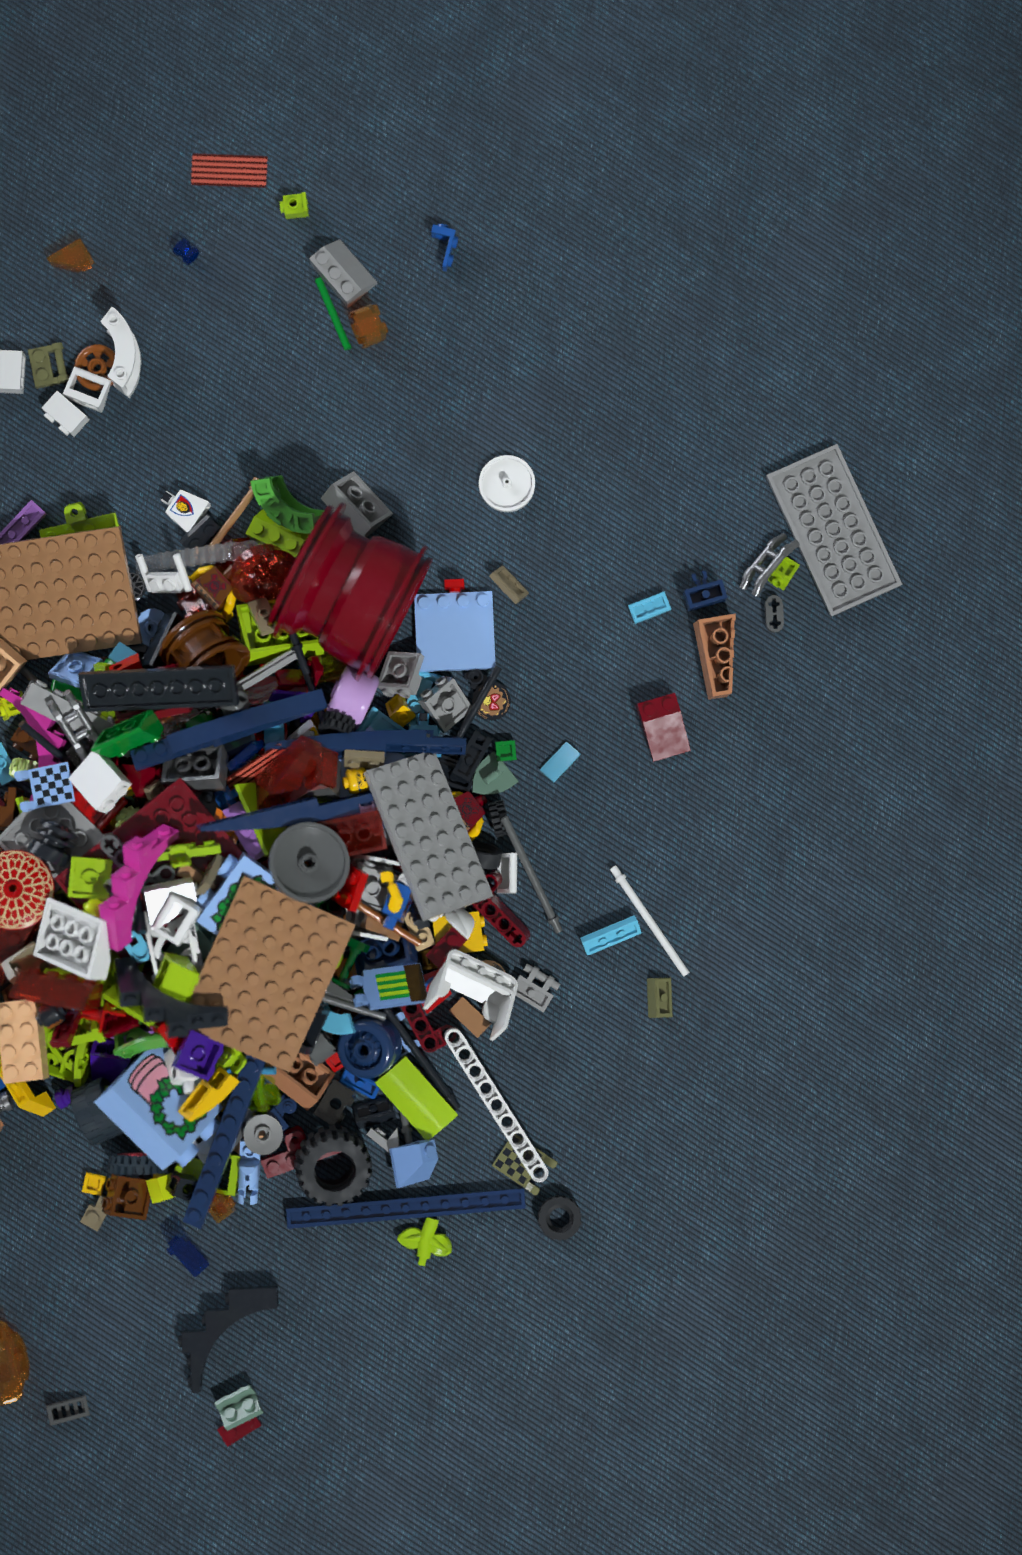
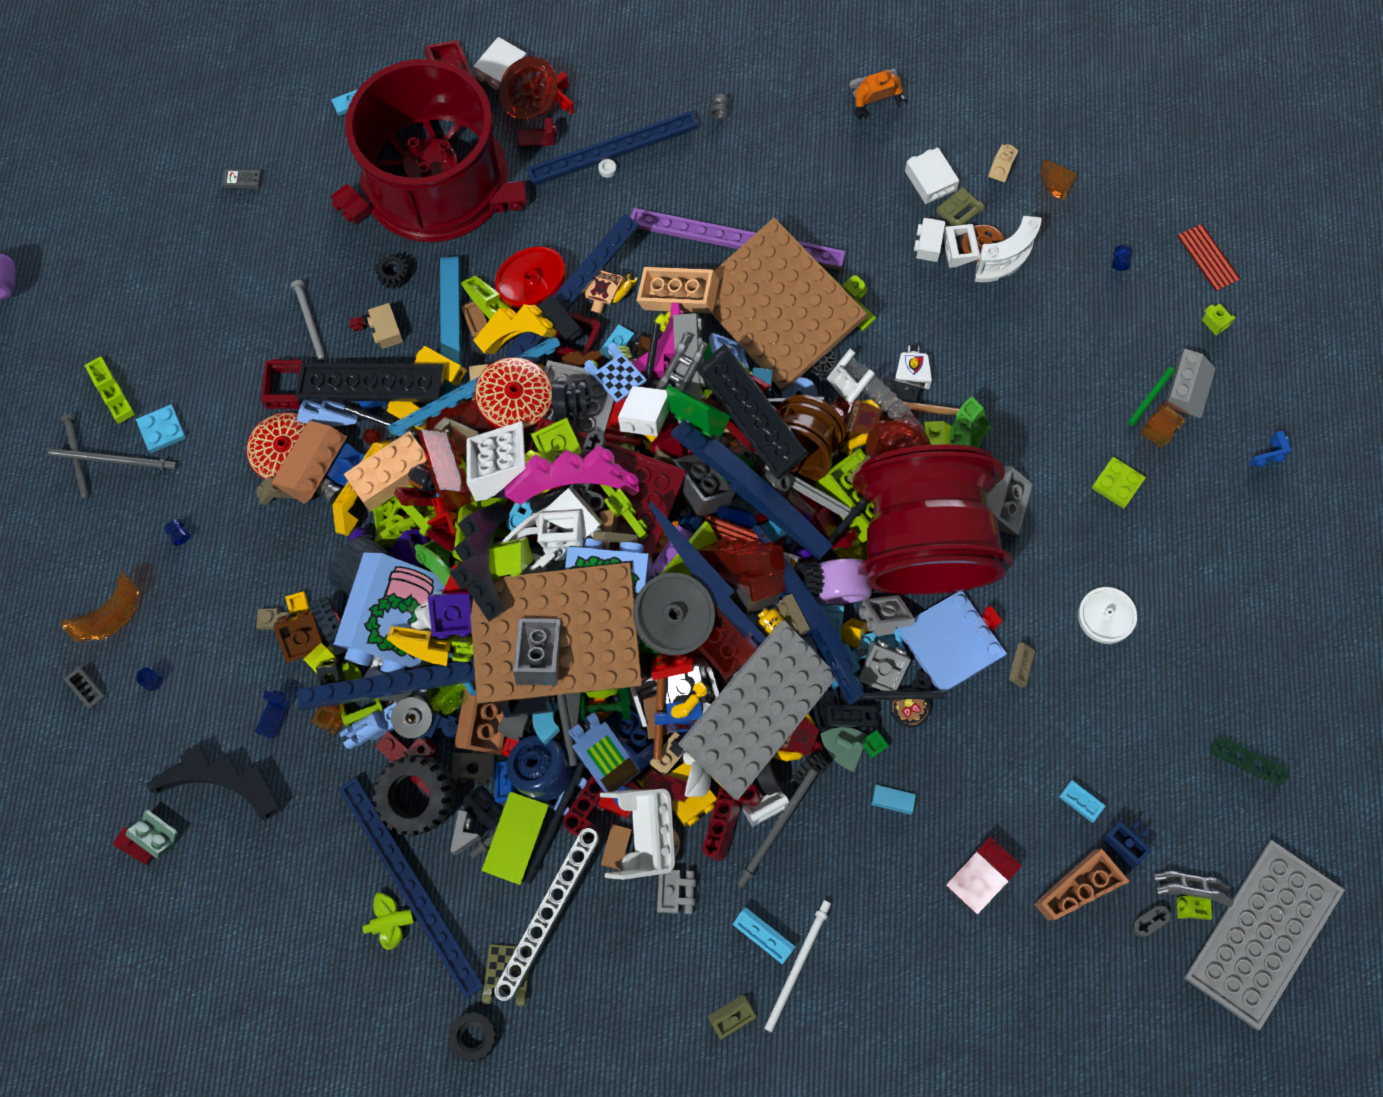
camera: 65 degrees right, 15 degrees down
(24, 295) = (1003, 162): none -> tan bracket
(89, 1348) = (146, 675): none -> clear blue wheel
(278, 997) = (537, 652): none -> flat silver slope
(395, 395) = (1118, 482): none -> lime plate
(413, 1162) = (454, 867): medium blue slope -> none
(694, 448) = (1248, 764): none -> clear green beam

